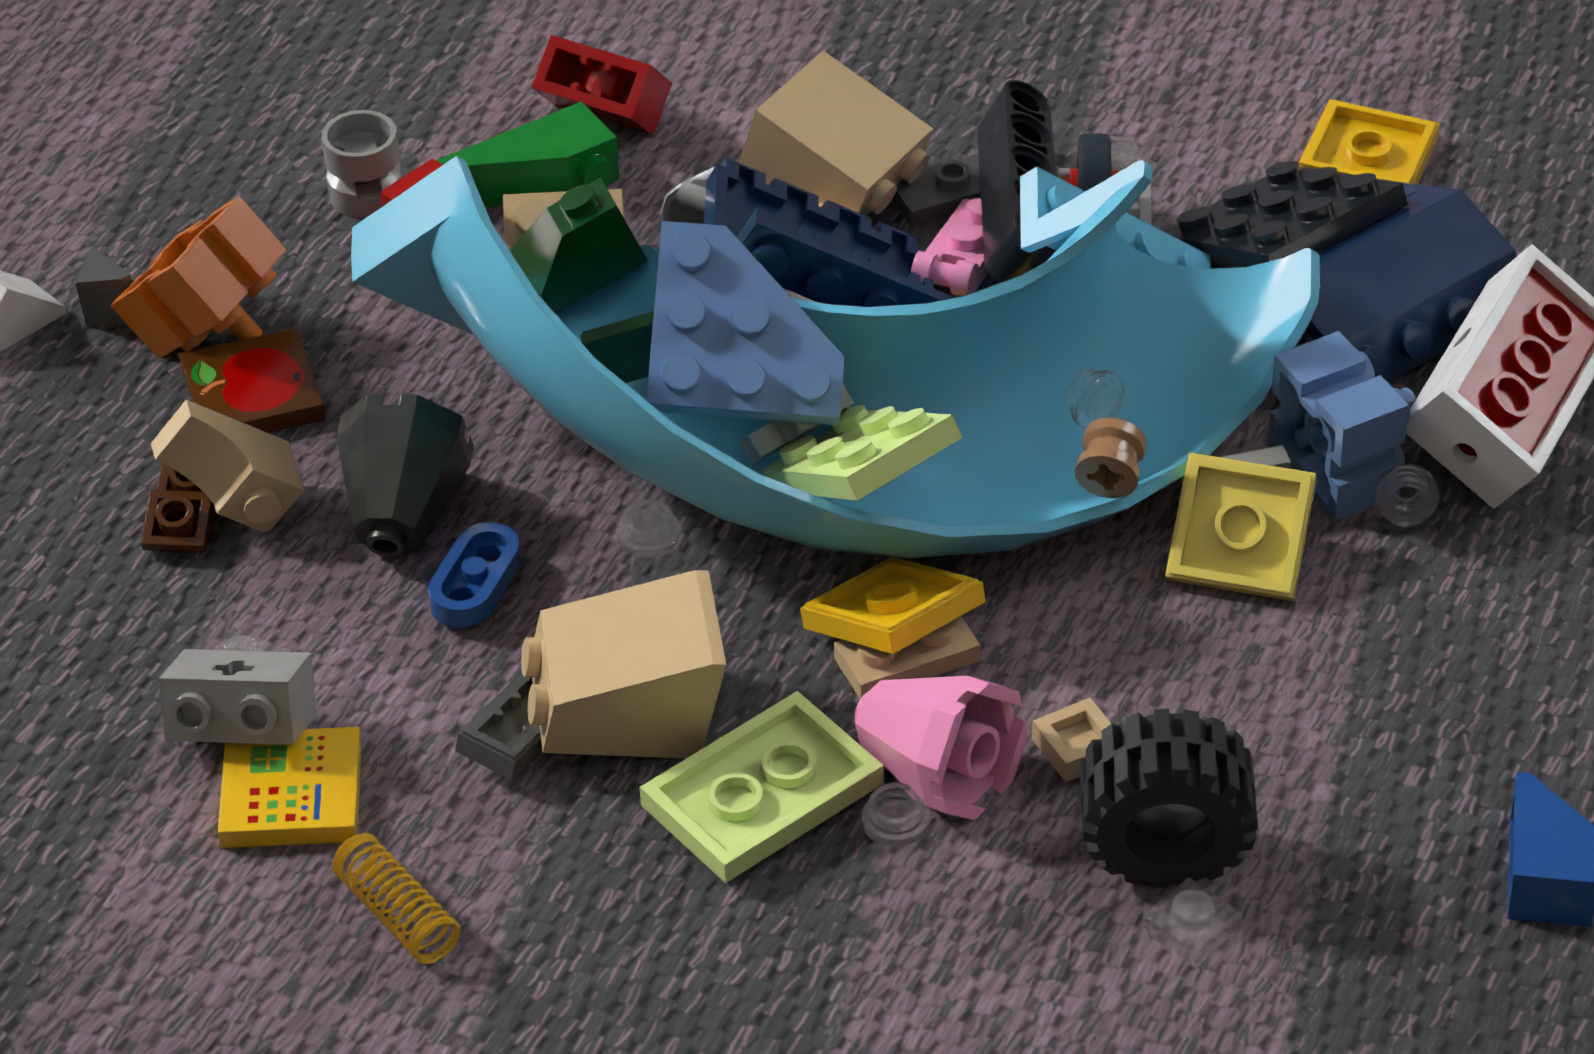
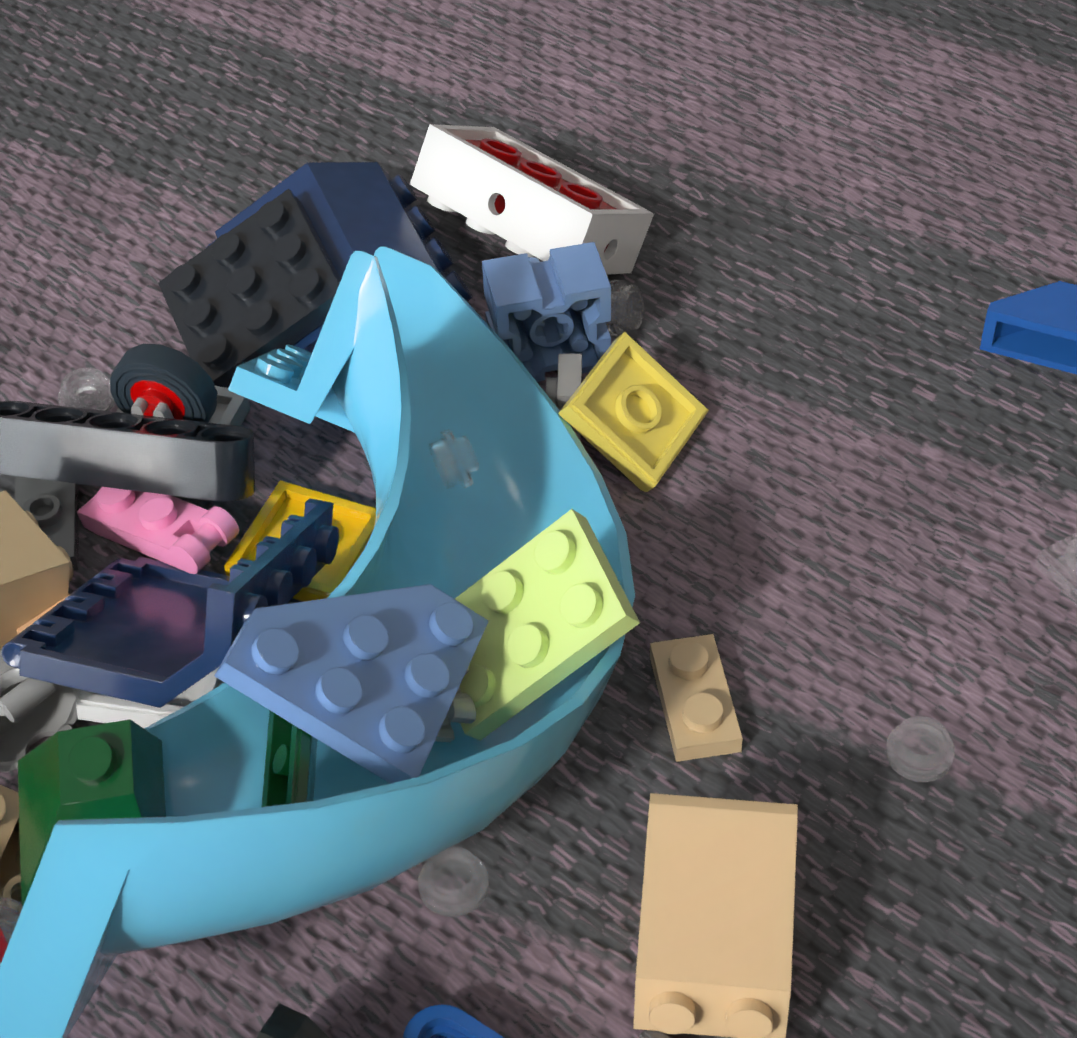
camera: 75 degrees left, 5 degrees up
(761, 786) = (870, 854): yellowish green plate -> none
(892, 604) = (664, 685): yellow tile -> none
(944, 737) = (854, 681): bright pink cone -> none
(1067, 733) = (855, 589): tan plate -> none
(1110, 458) = (566, 454): medium nougat wheel -> none
(1168, 798) = (998, 522): black tyre -> none
(1371, 141) = (157, 233): yellow tile -> none

